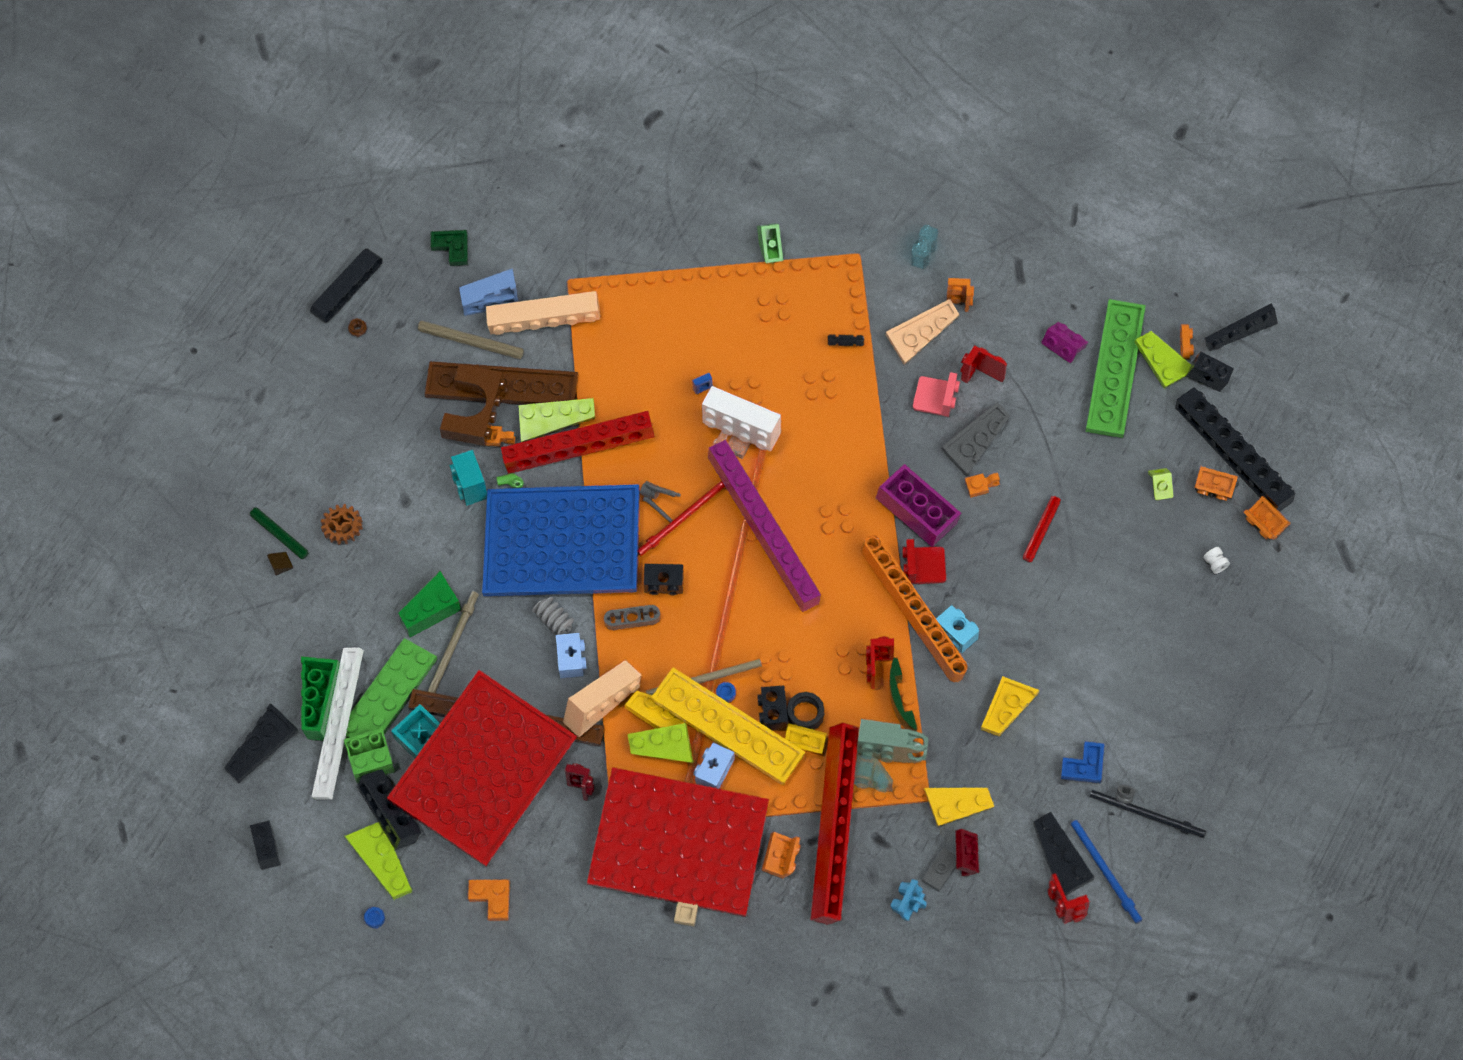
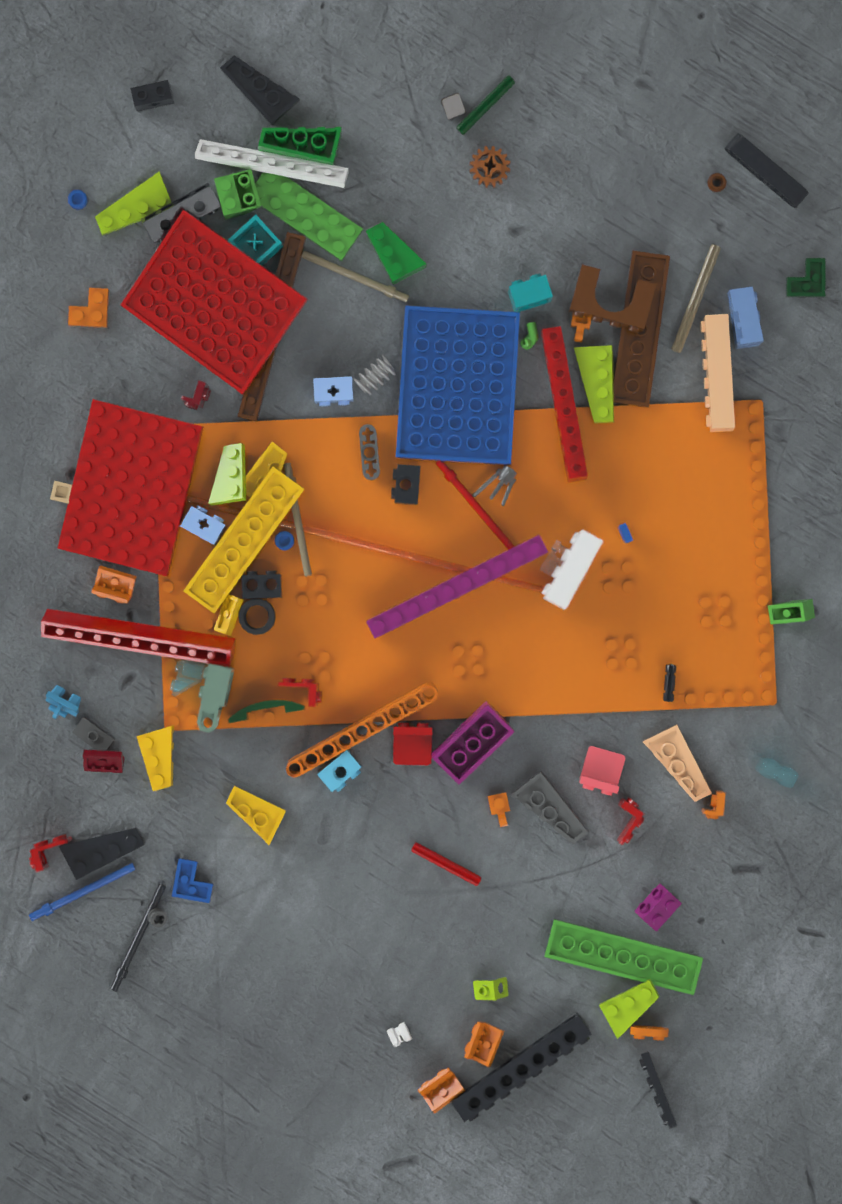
camera: 90 degrees right, 25 degrees up
(600, 697) = (280, 419): light nougat wedge -> none
(1210, 371) = (609, 1052): black brick -> none

